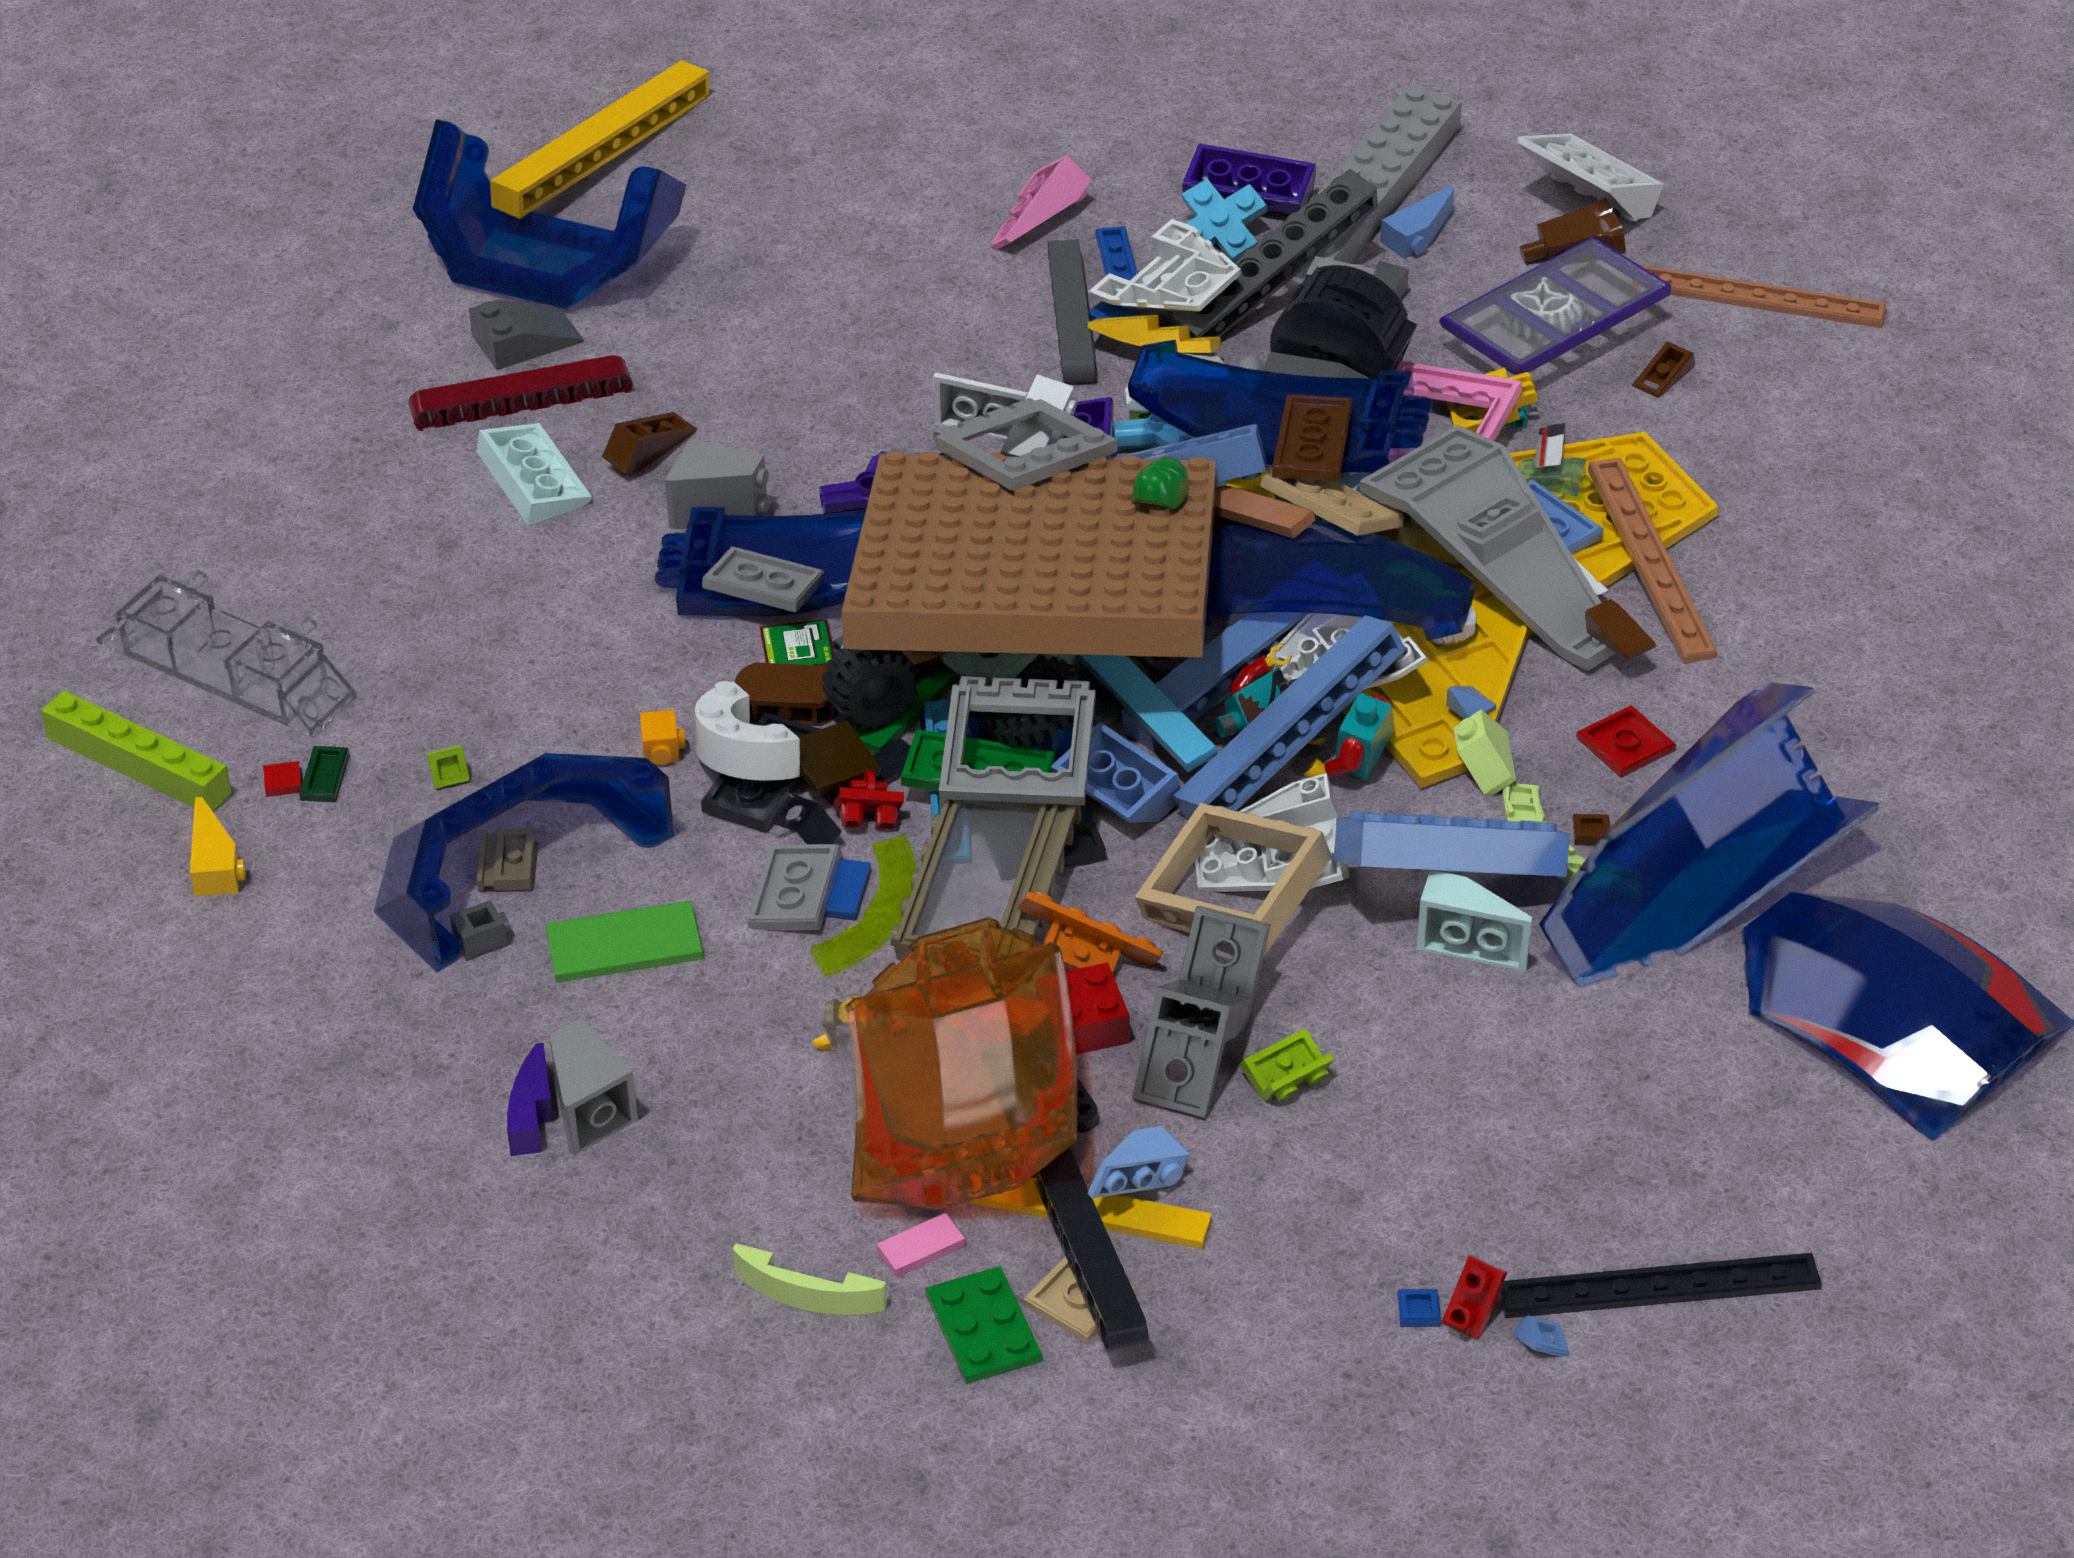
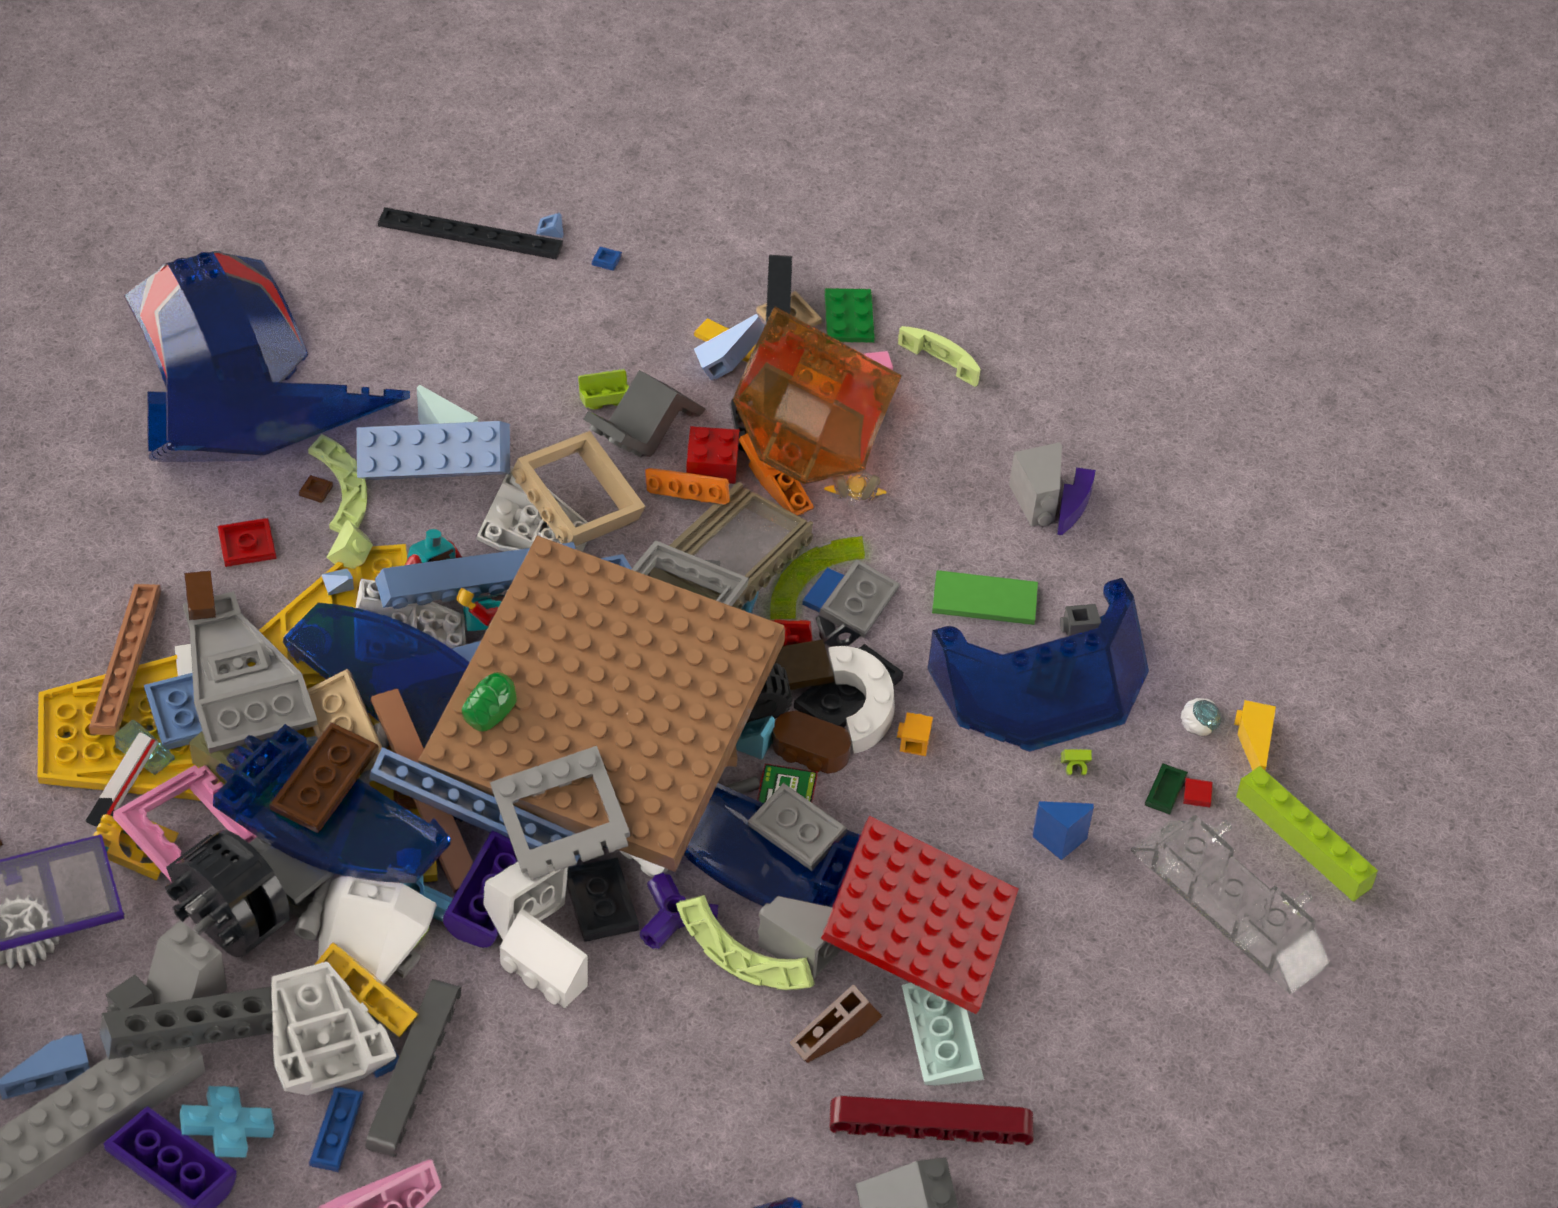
camera: 165 degrees left, 5 degrees up
(291, 865) = (1200, 716): none -> hair
(444, 663) = (1062, 826): none -> blue slope
(586, 525) = (921, 914): none -> red plate
(816, 468) = (737, 959): none -> yellowish green tile
(1474, 1297) = (579, 238): red hips -> none

